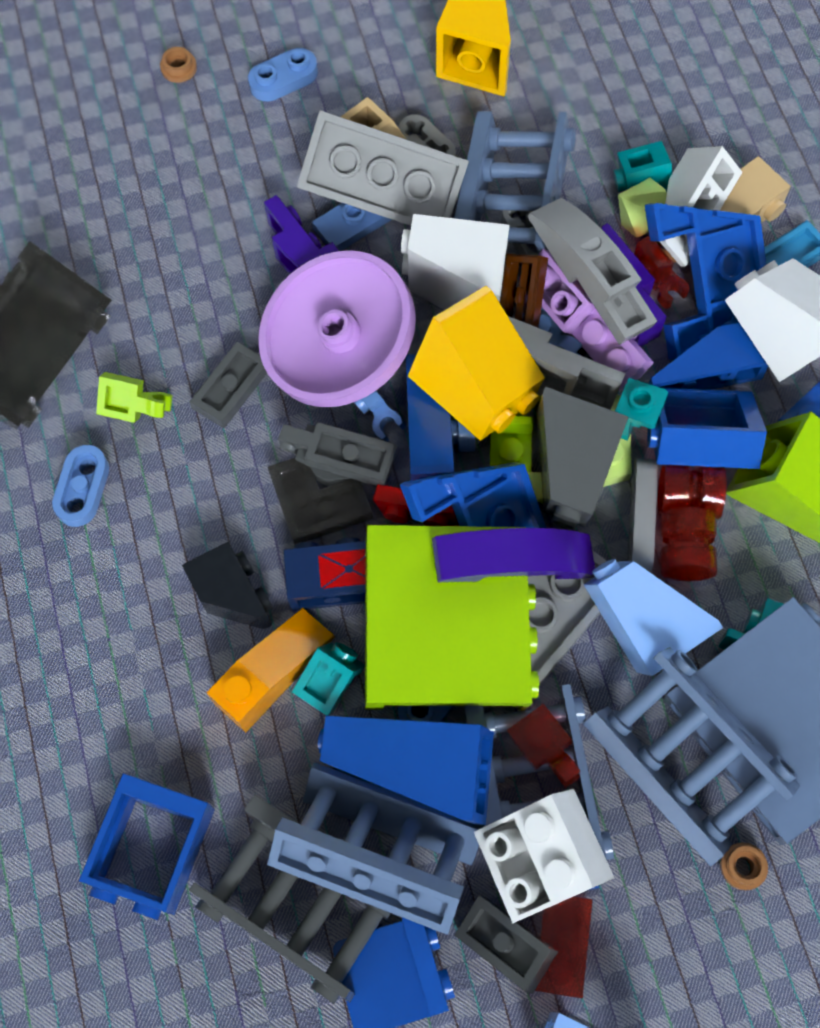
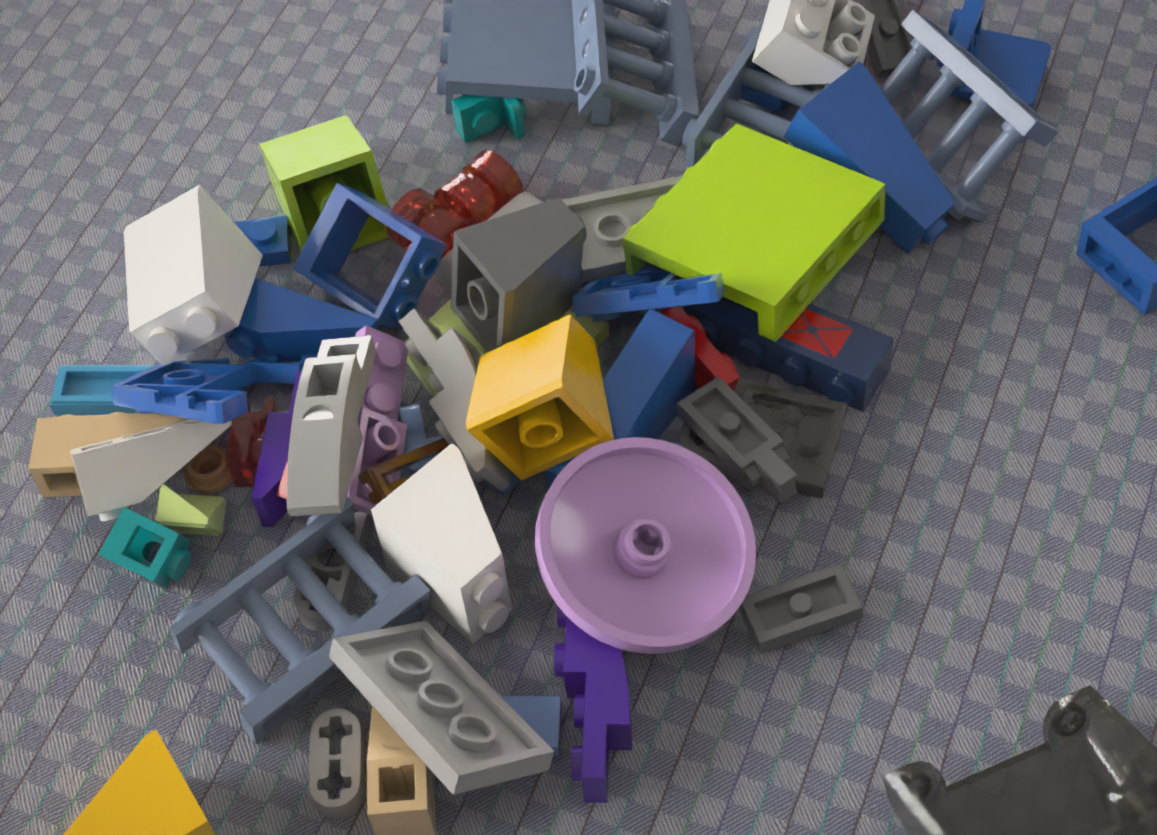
camera: 140 degrees left, 15 degrees down
(80, 488) = (1044, 602): medium blue plate -> none
(125, 400) = (934, 661): plate -> none
(214, 905) = (1014, 178): dark grey fence -> none
(224, 588) = (948, 404): black slope -> none
(268, 669) = (957, 311): light orange slope -> none
(328, 676) = (894, 276): teal bracket -> none
(513, 553) = (695, 219): dark purple slope -> none
(542, 742) = (746, 106): clear red plate -> none
(641, 404) = (420, 286): teal bracket -> none
(647, 613) = (567, 155): light blue slope -> none

